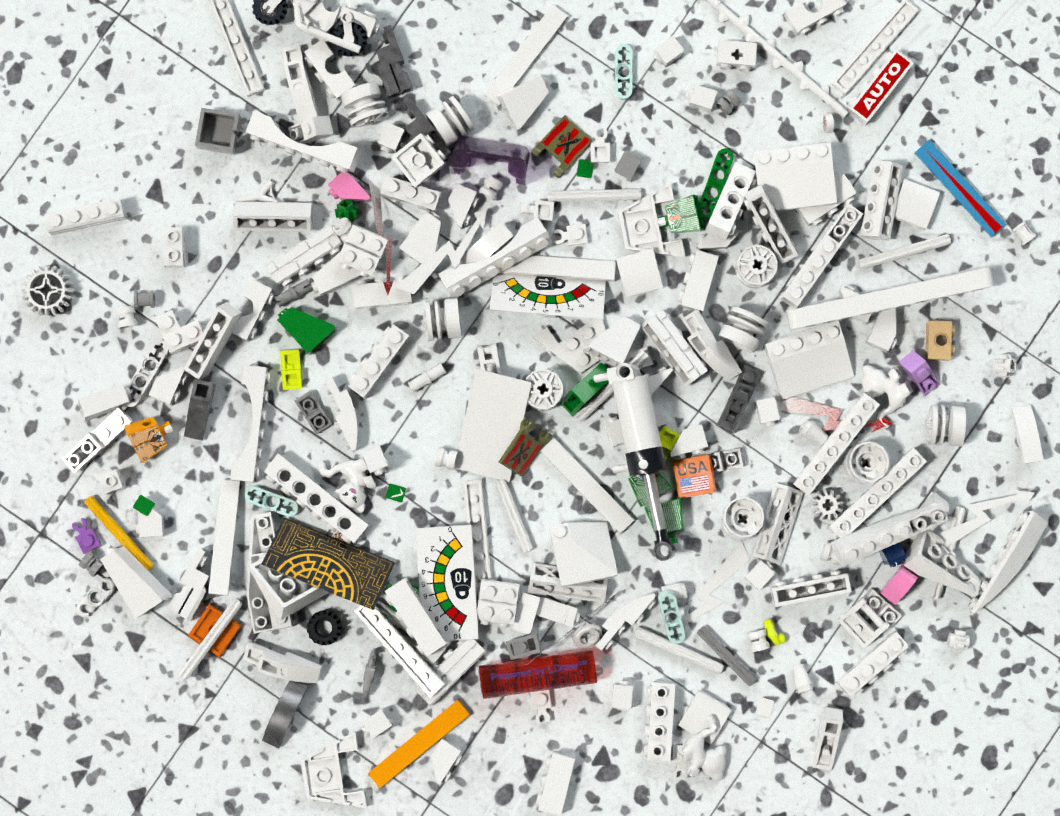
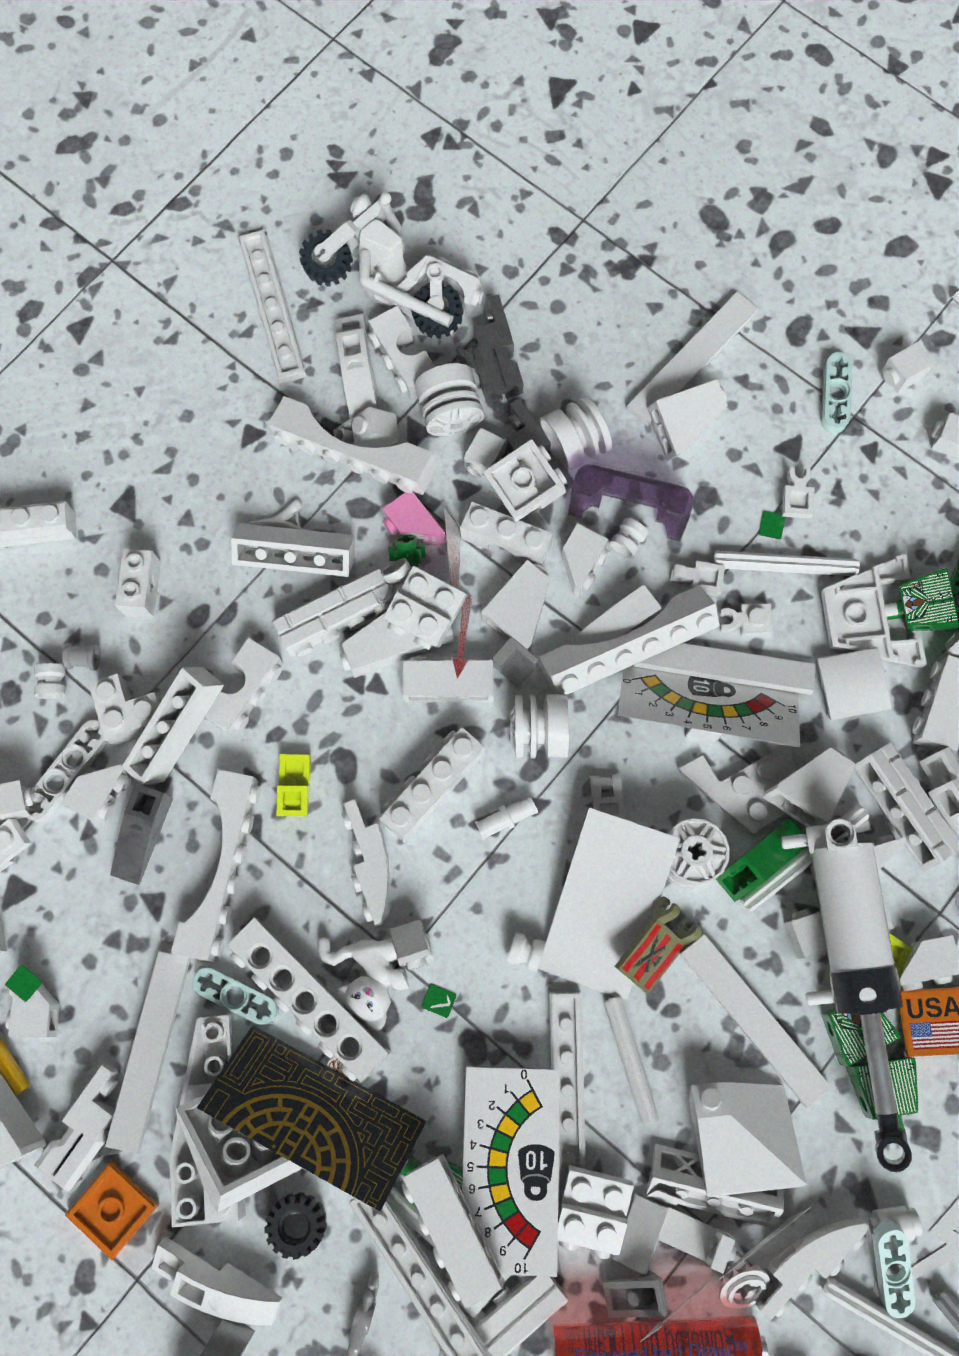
camera: 10 degrees right, 10 degrees down
(147, 437) = (48, 871): light orange torso -> none
(210, 639) = (98, 1228): white axle -> none
(218, 131) = (227, 420): light grey piece -> none
(293, 293) = (311, 667): light grey pin -> none
(305, 329) = (323, 723): green slope -> none
(313, 412) = (320, 856): light grey slope -> none
(420, 274) = (505, 658): white sticker -> none
(564, 143) = (744, 485): flag -> none
(627, 166) = (842, 521): light grey panel -> none

